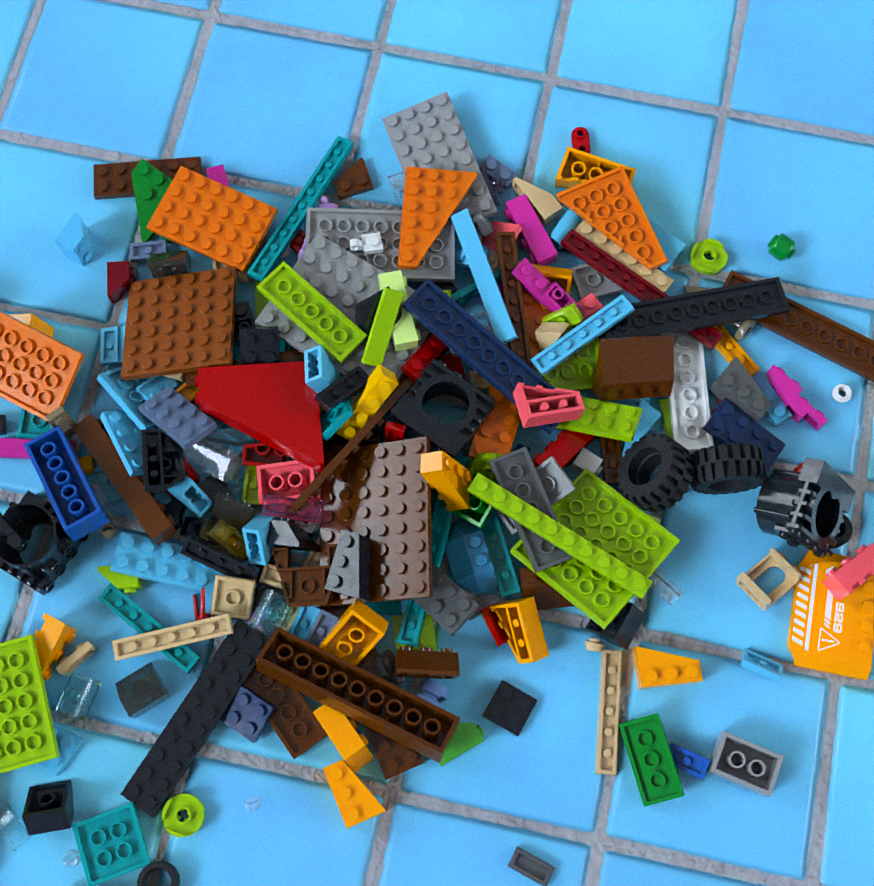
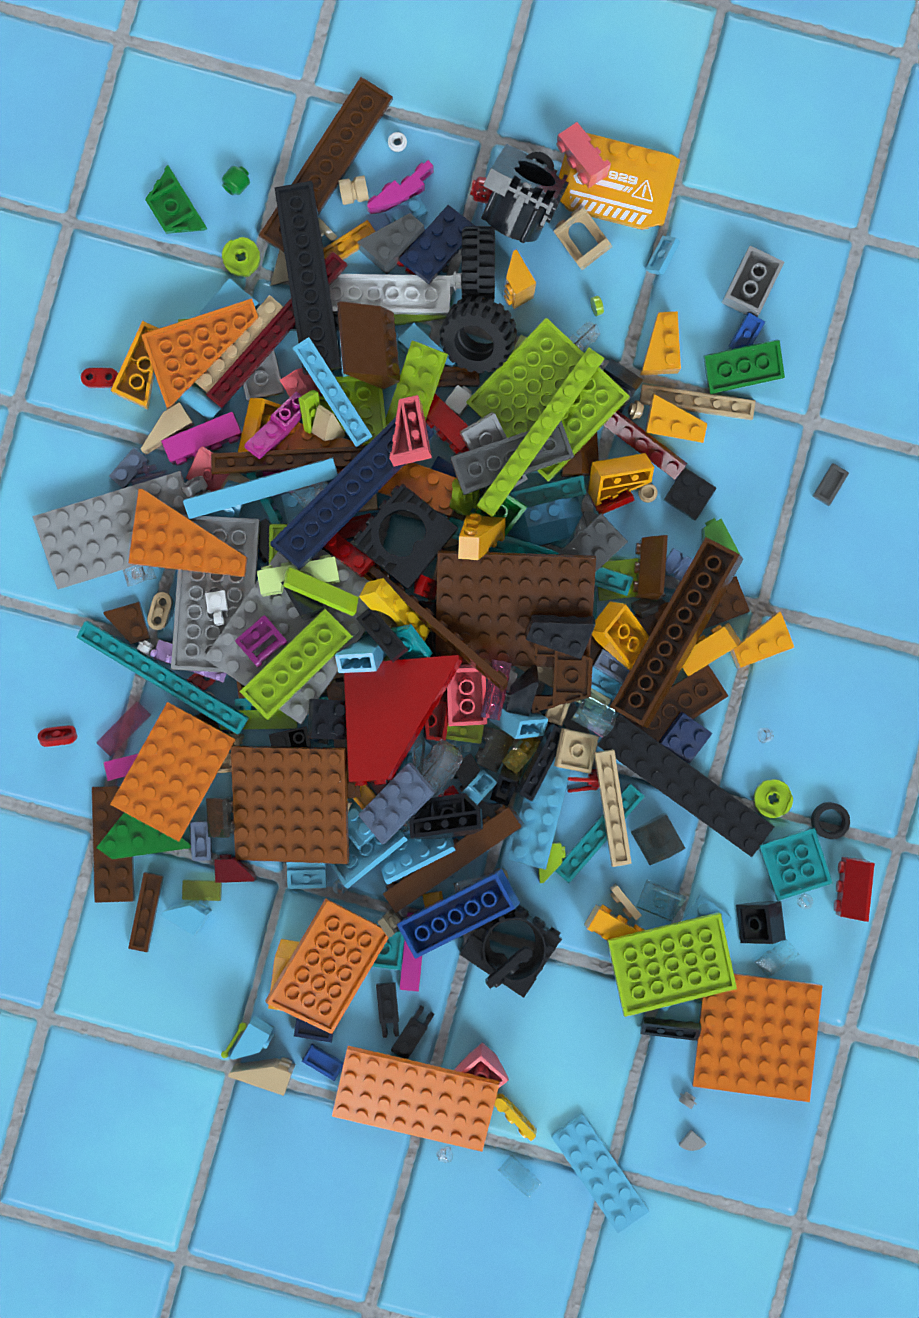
camera: 85 degrees left, 15 degrees up
(85, 207) = (146, 912): none -> reddish brown plate
(102, 254) = (201, 890): none -> clear yellow tile
(246, 125) = (57, 736): none -> red plate
(254, 181) = (123, 729): none -> clear pink plate
(330, 193) = (145, 647): none -> white plate
(338, 275) = (256, 636): none -> magenta plate
(365, 201) = (158, 610): none -> tan plate
(507, 662) = (647, 493): none -> tan plate
(559, 655) = (645, 443): none -> plate
(584, 684) = (673, 421): none -> light orange wedge
(700, 598) = (596, 305): none -> lime tile
(713, 510) = (519, 282): none -> light orange slope
(749, 195) = (173, 206): none -> green wing
(786, 352) = (353, 190): none -> tan wheel

